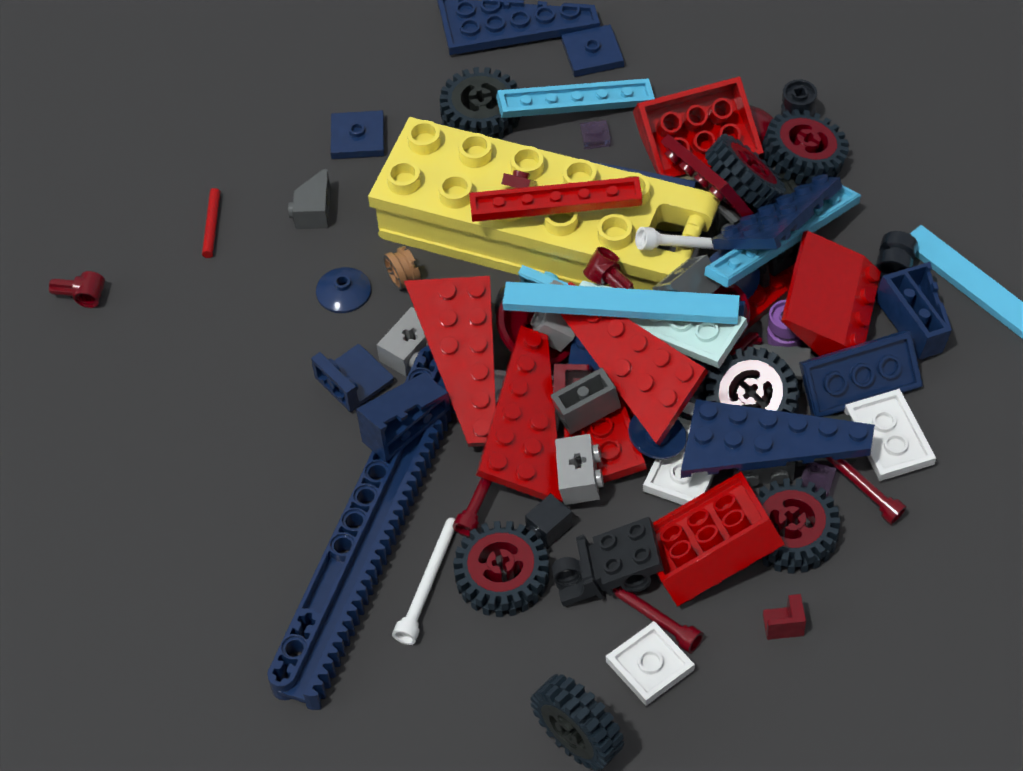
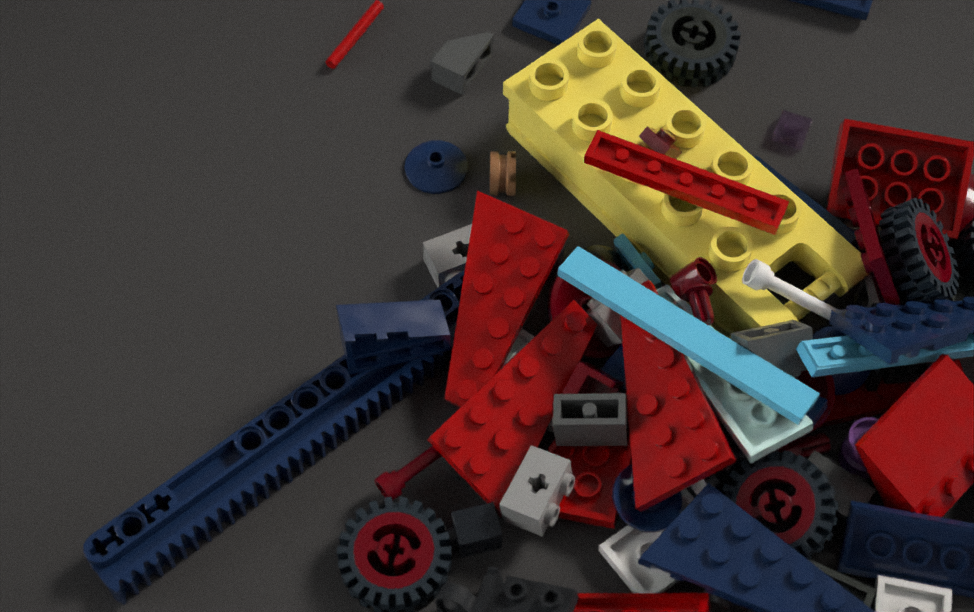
camera: 25 degrees right, 5 degrees up
(84, 288) = (192, 41): dark red axle -> none
(352, 376) = (383, 262): dark blue bracket -> none
(407, 628) = (259, 567): white piece -> none
(573, 98) = (791, 80): medium azure plate -> none
(592, 50) = (844, 38): dark blue plate -> none

